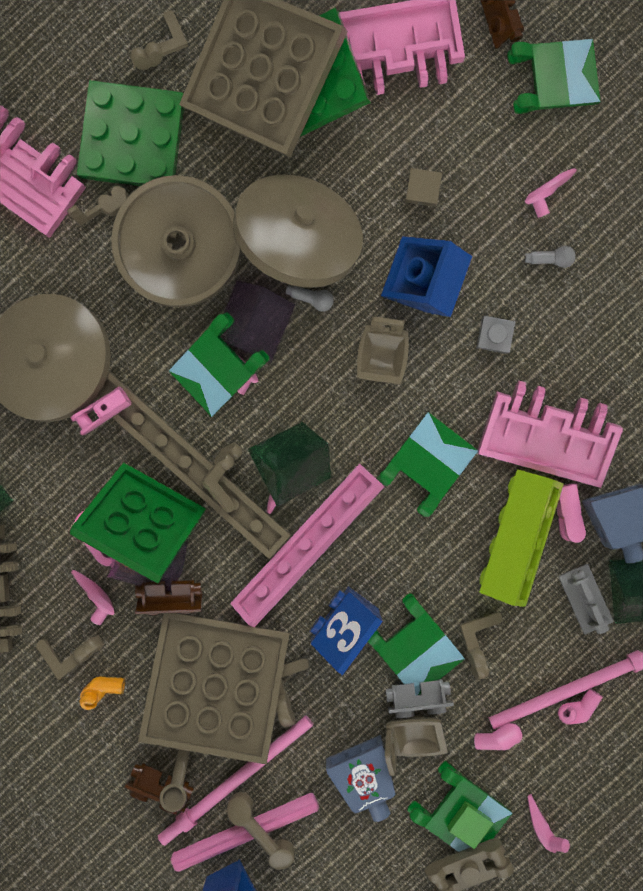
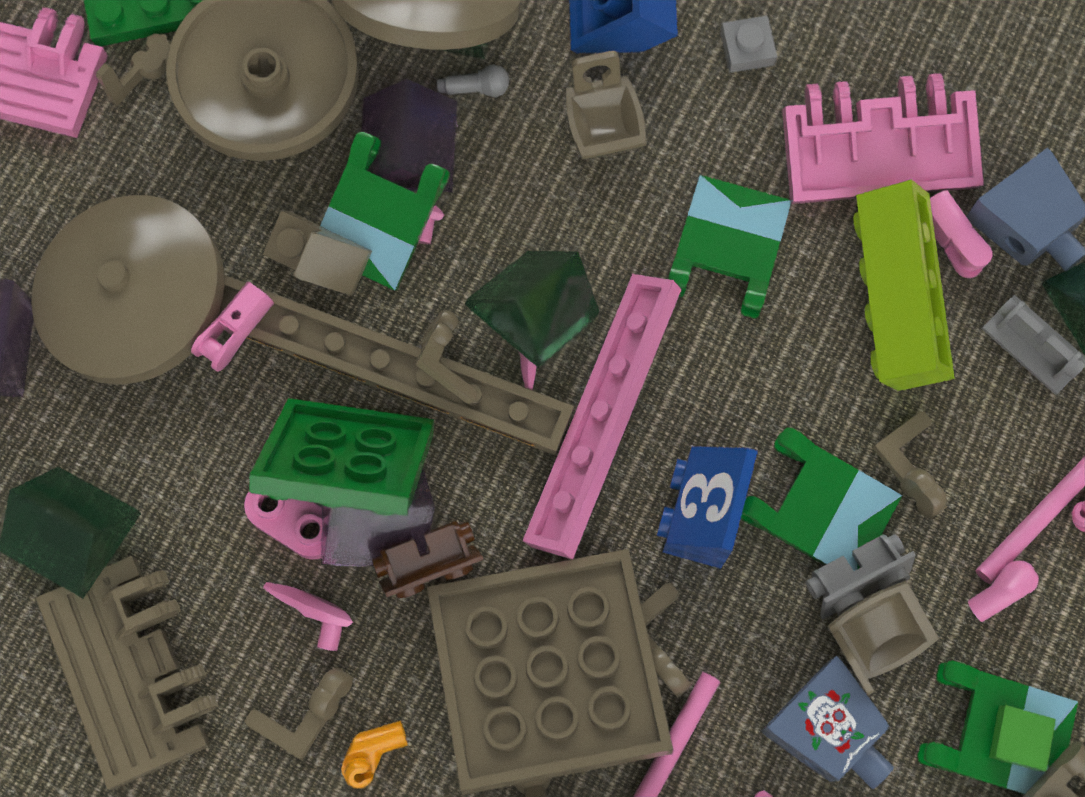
camera: 20 degrees left, 15 degrees down
(171, 377) = (317, 253): none -> dark tan slope

